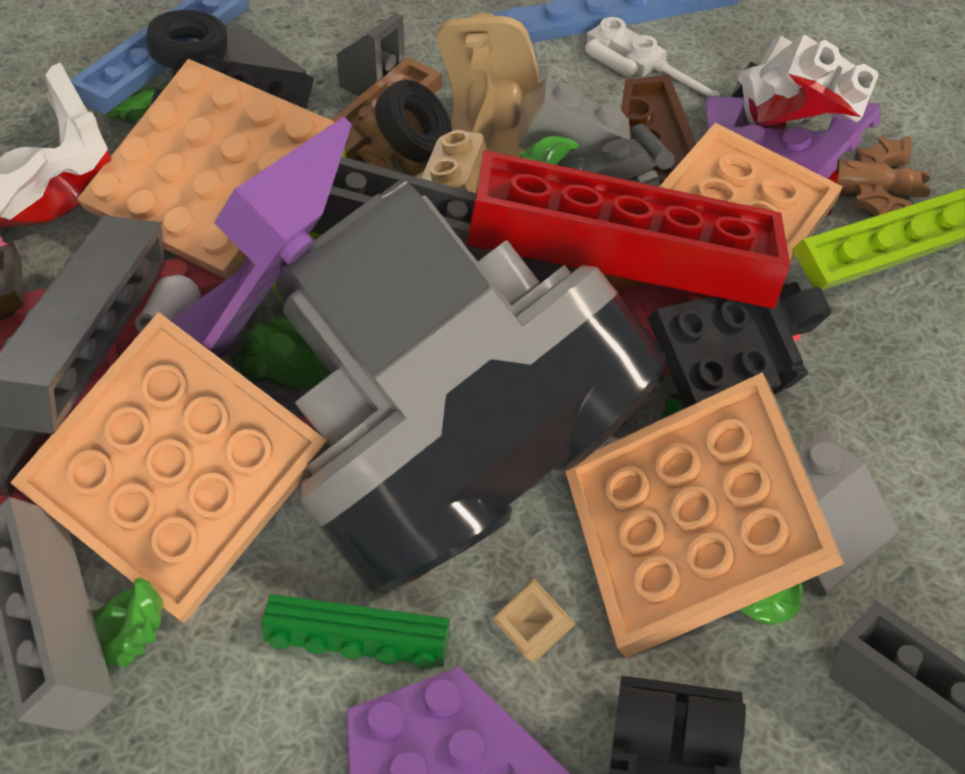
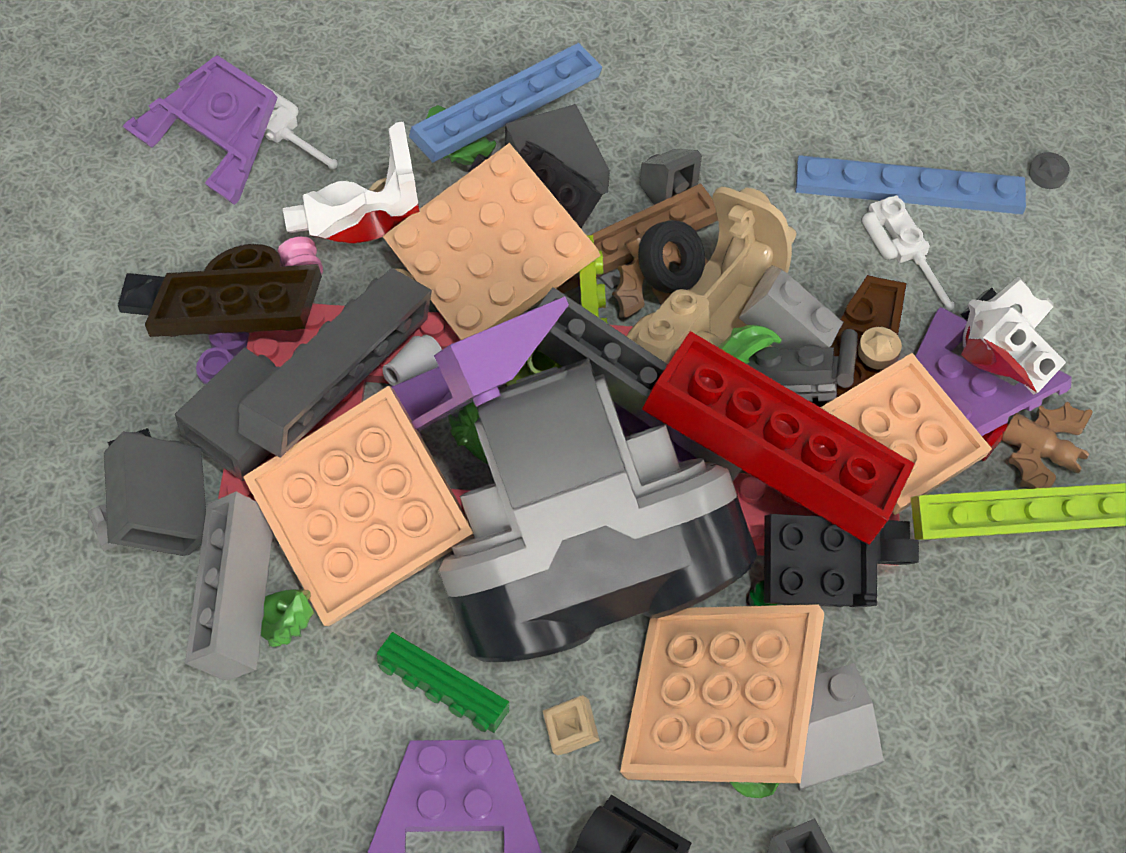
camera: 20 degrees right, 10 degrees up
(182, 24) = (523, 93): black tyre -> none
(678, 131) = (879, 347): none -> tan tile

